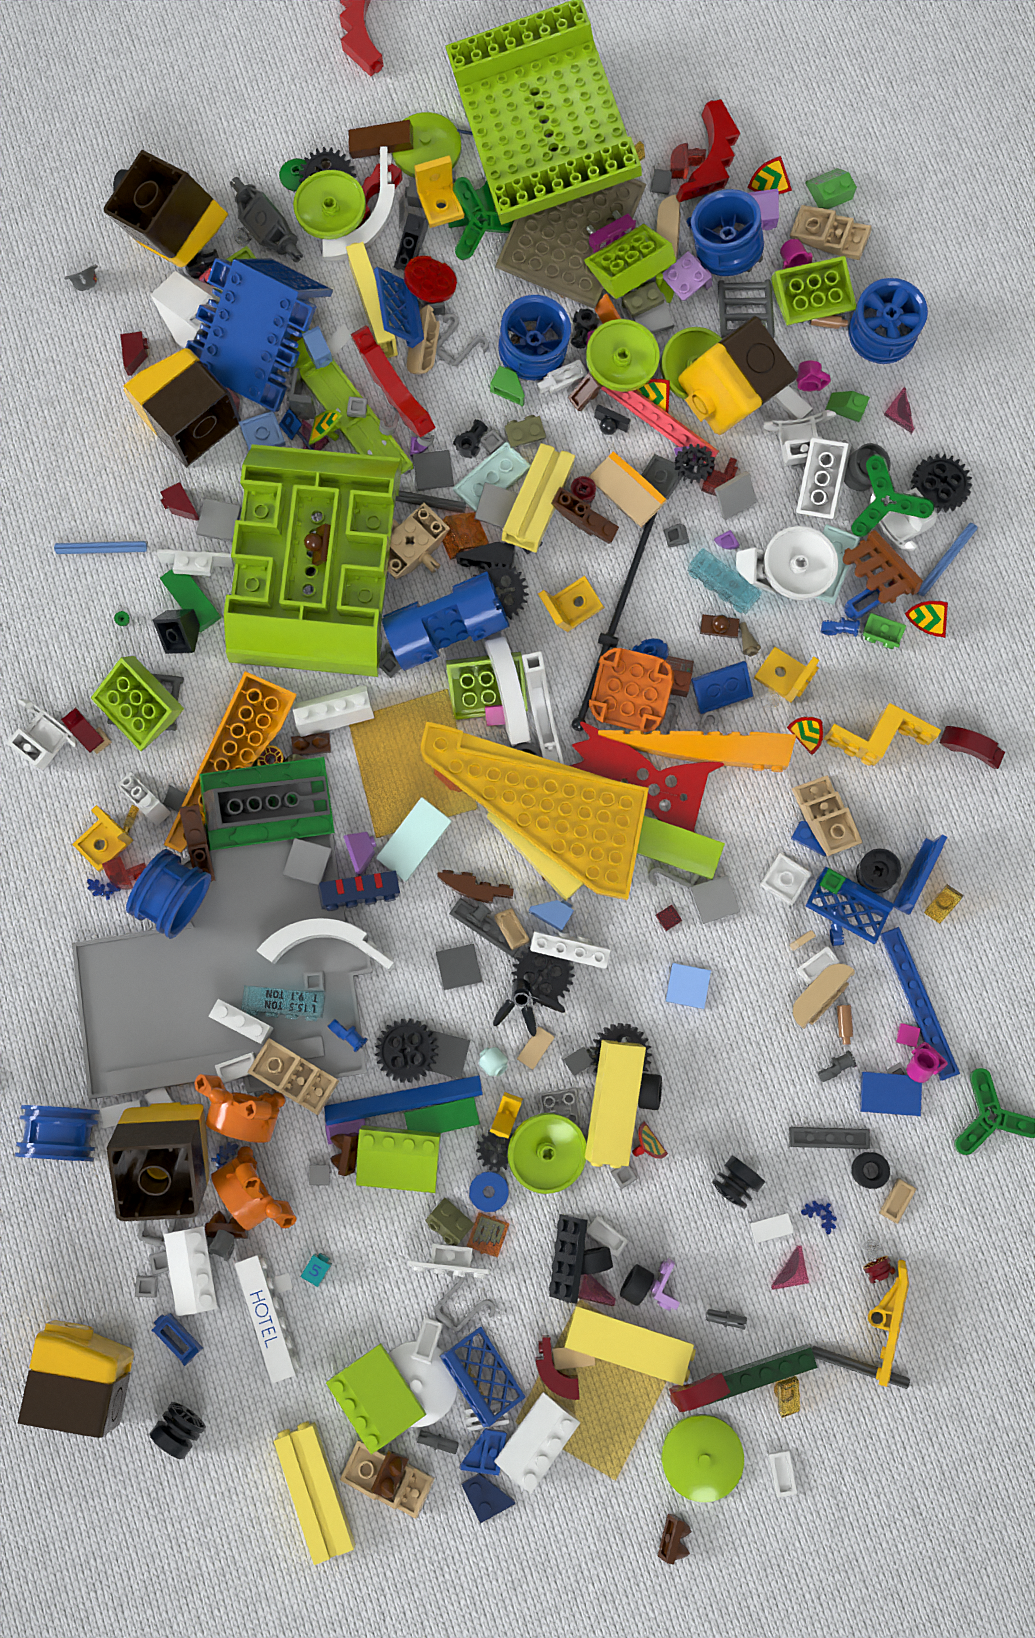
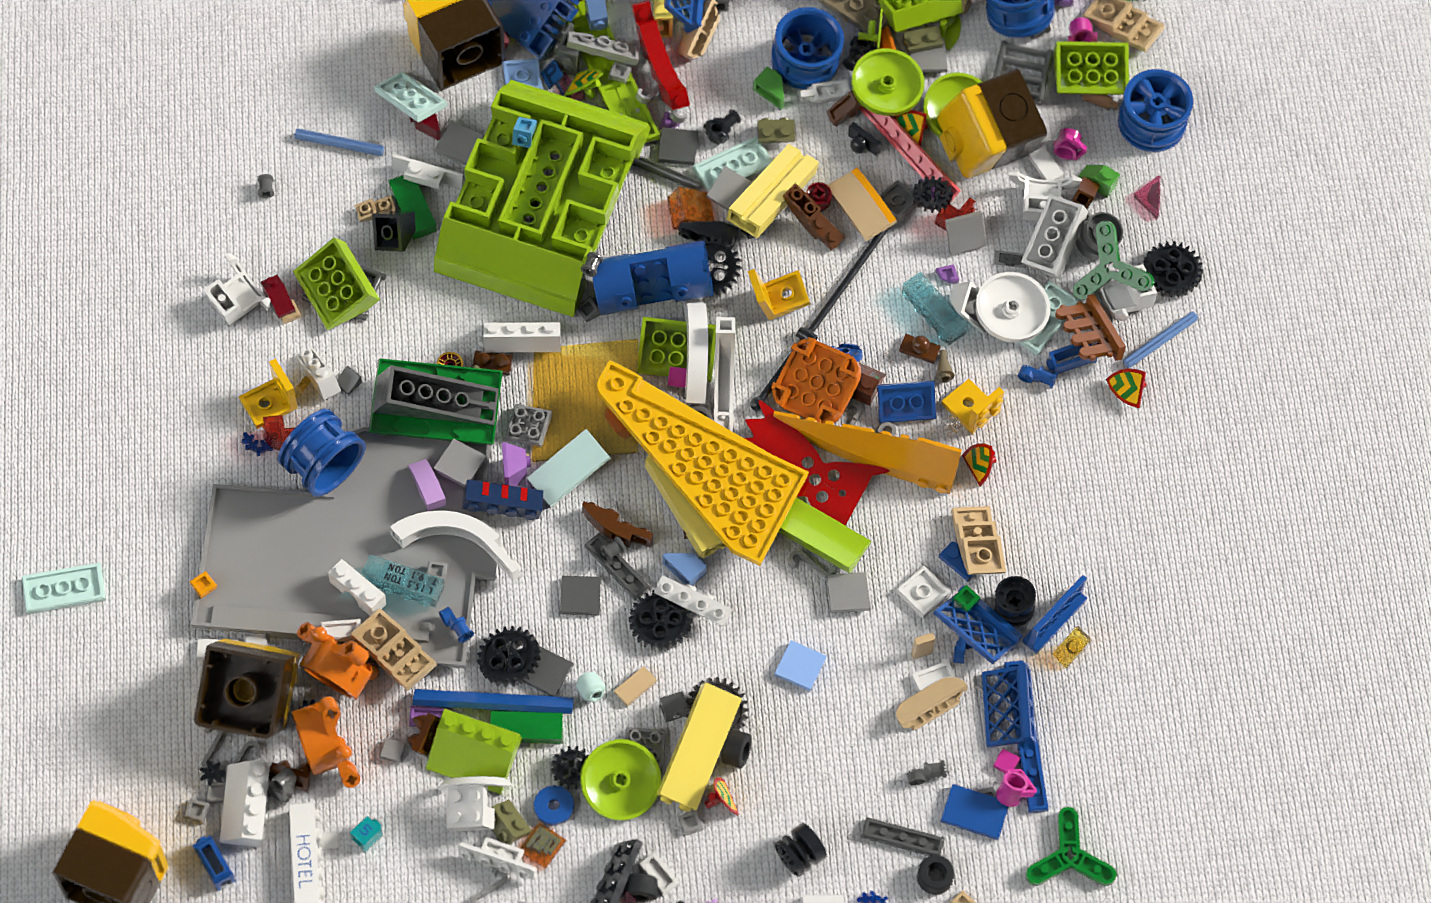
camera: 10 degrees right, 15 degrees down
(40, 613) = (265, 186): none -> dark grey bush
(57, 1133) = (155, 641): blue wheel -> none
(89, 1054) = (203, 584): none -> light orange tile
(120, 616) = (342, 209): green piece -> none
(152, 609) = (369, 206): none -> tan slope
(154, 1246) = (212, 773): none -> black plant
(158, 483) = (410, 96): none -> light aqua tile
(196, 838) = (360, 411): reddish brown slope -> none
(244, 733) = (433, 332): light orange wedge -> none
(280, 503) = (523, 132): none -> dark azure bracket
(281, 892) = (427, 485): none -> lavender slope
(318, 544) = (550, 177): reddish brown tile -> none
(343, 385) = (602, 46): none -> light grey wing
(363, 802) = (528, 425): none -> light grey tile
(387, 622) = (591, 264): none -> dark grey bush
(407, 1218) = (468, 802): none -> white piece
(426, 532) = (643, 204): tan slope -> none
(445, 356) = (721, 52): light grey piece -> none
(491, 441) = (741, 133): light grey tile -> none
(506, 1115) = (591, 736): yellow bracket -> none
(511, 928) = (641, 571): tan tile -> none
(521, 997) = (636, 647): black plant -> none
(593, 309) = (871, 36): none -> lime shield
(668, 918) = (798, 599): tile -> none
(676, 535) = (899, 258): dark grey slope -> none
(687, 276) = (971, 28): lavender bracket -> none
(782, 509) = (1009, 259): none -> sticker
(840, 425) = (1085, 192): none -> reddish brown brick
(845, 1024) = (946, 735): medium nougat cylinder -> none
(882, 733) = (1051, 479): yellow bracket -> none
(883, 630) = (1080, 388): bright green bracket -> none
(913, 973) = (1025, 708): none -> blue fence
(974, 744) = (1141, 509): dark red arch -> none

